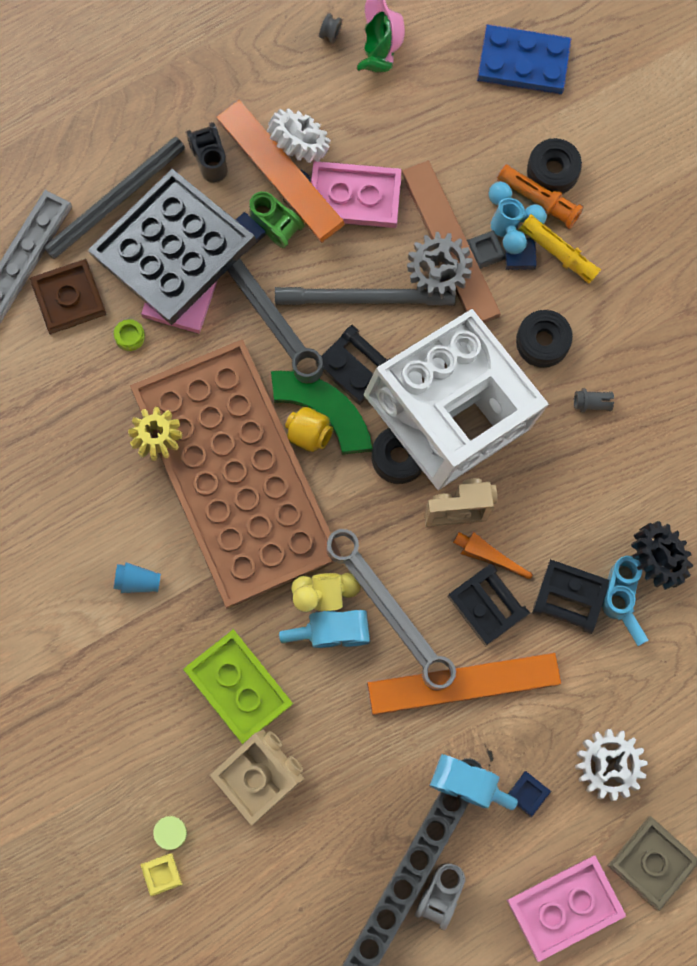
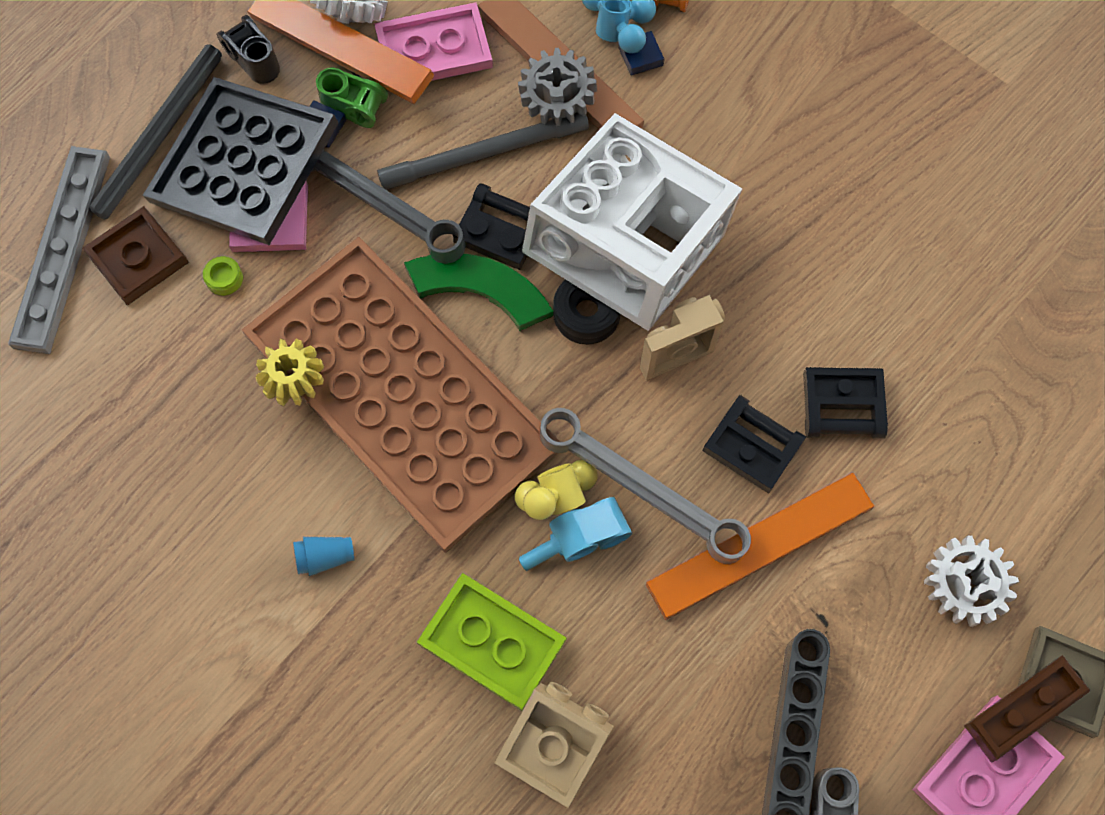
camera: 15 degrees left, 5 degrees down
(309, 429) = (471, 312): yellow head -> none
(470, 782) = (825, 656): medium azure beam -> none
(479, 549) = (718, 384): orange piece -> none
(486, 249) = (603, 58): dark grey tile -> none
(529, 793) = (886, 650): dark blue tile -> none
(549, 322) = (708, 113): black tyre -> none
(560, 249) = (685, 33): yellow pin -> none
(588, 400) = (775, 182): dark grey pin -> none
(612, 871) = (1026, 708): none -> reddish brown tile
(626, 589) = (905, 374): medium azure beam -> none
(662, 555) = (931, 320): black gear -> none

